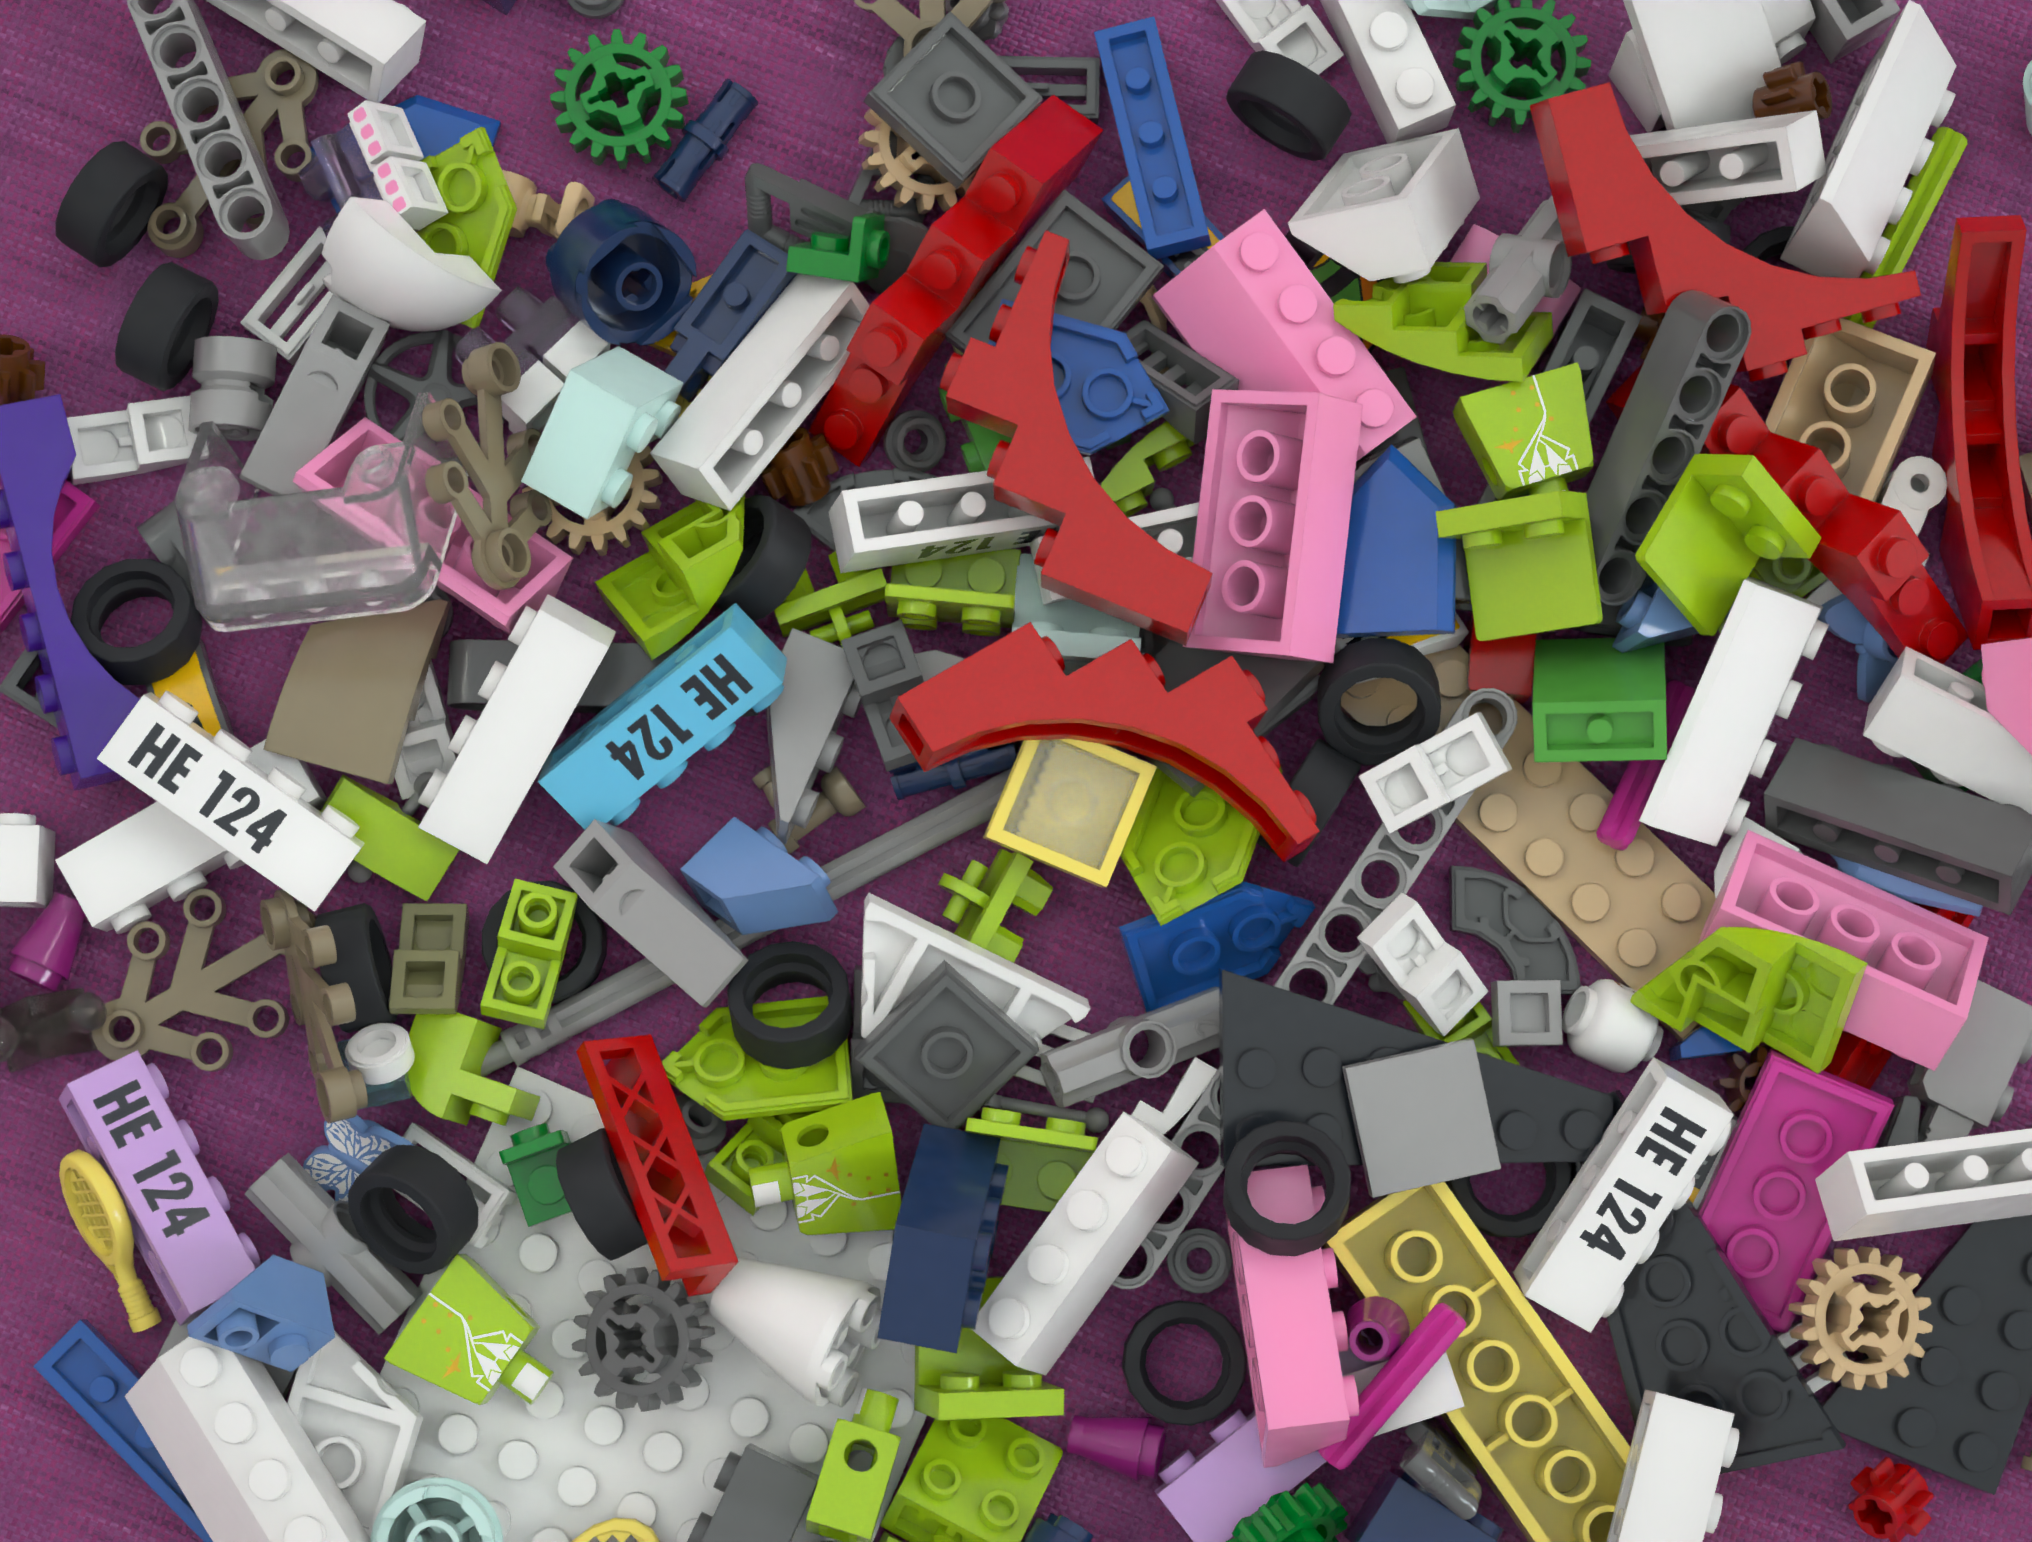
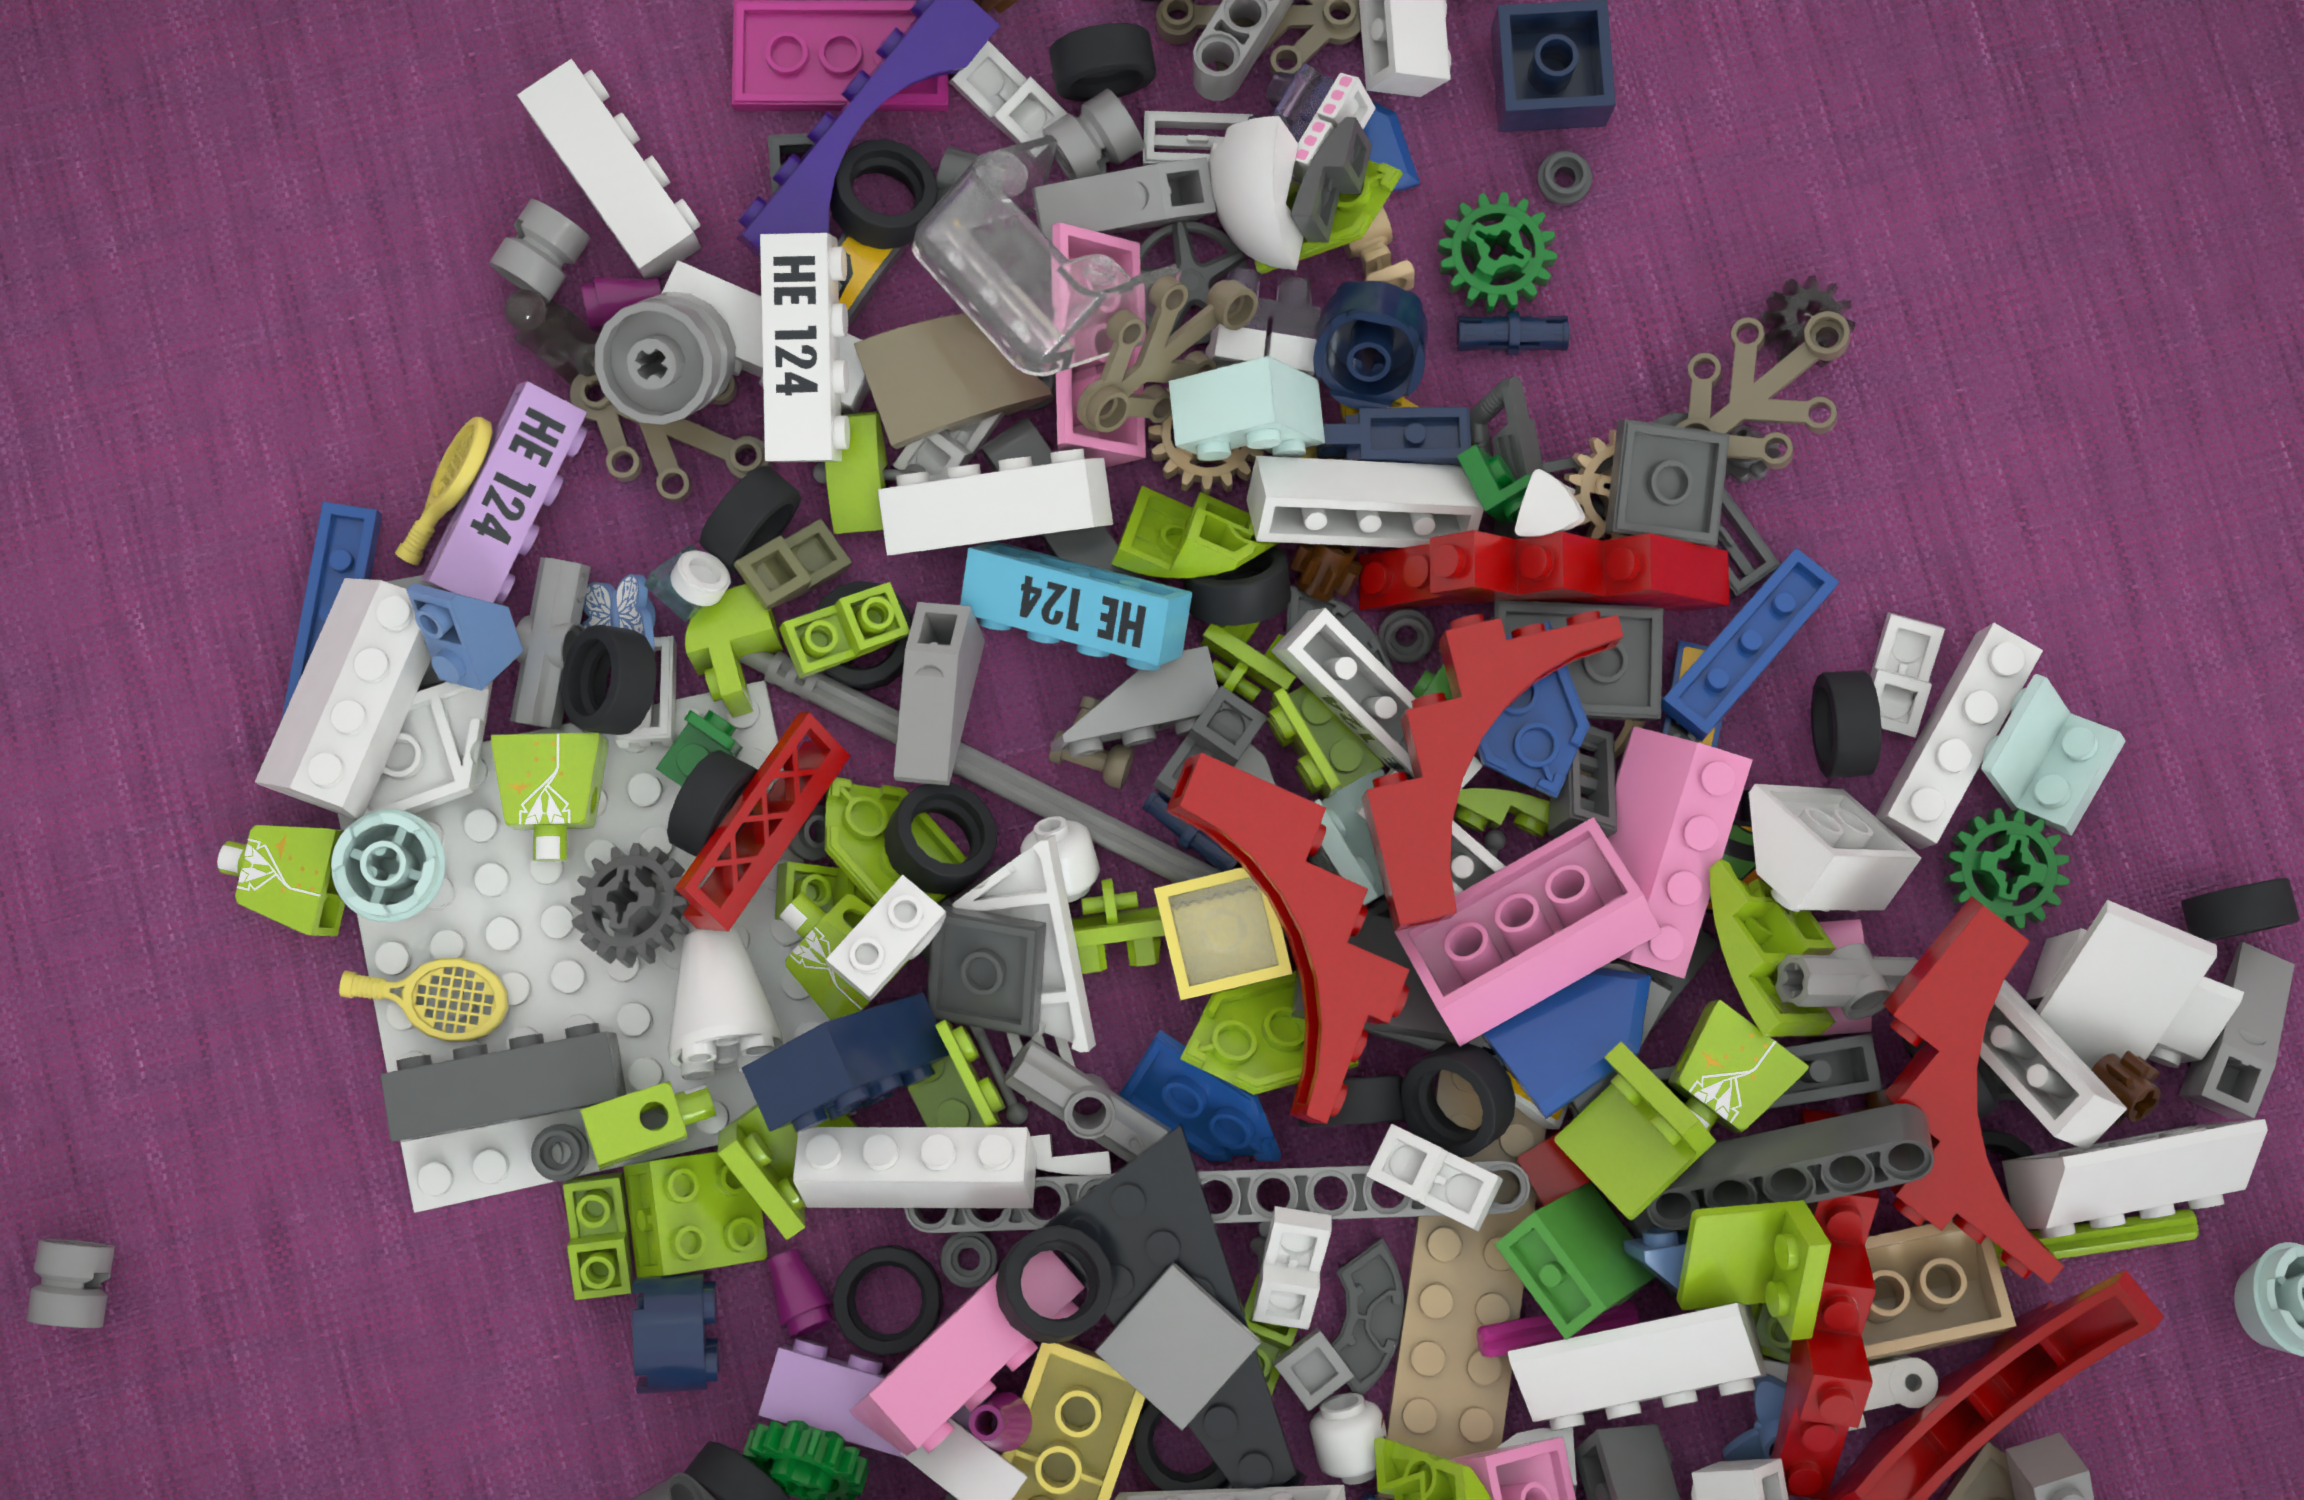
camera: 55 degrees right, 0 degrees up
(135, 973) = (659, 388): none -> light grey wheel
(314, 1002) = (744, 451): dark tan plant -> none
(435, 186) = (1334, 170): none -> dark grey slope
(755, 883) = (1008, 751): medium blue slope -> none
(853, 1116) = (886, 938): none -> white plate
(893, 885) = (1075, 851): none -> white head
(898, 222) = (1547, 507): none -> white tile
(1396, 1381) = (974, 1463): dark pink axle -> none

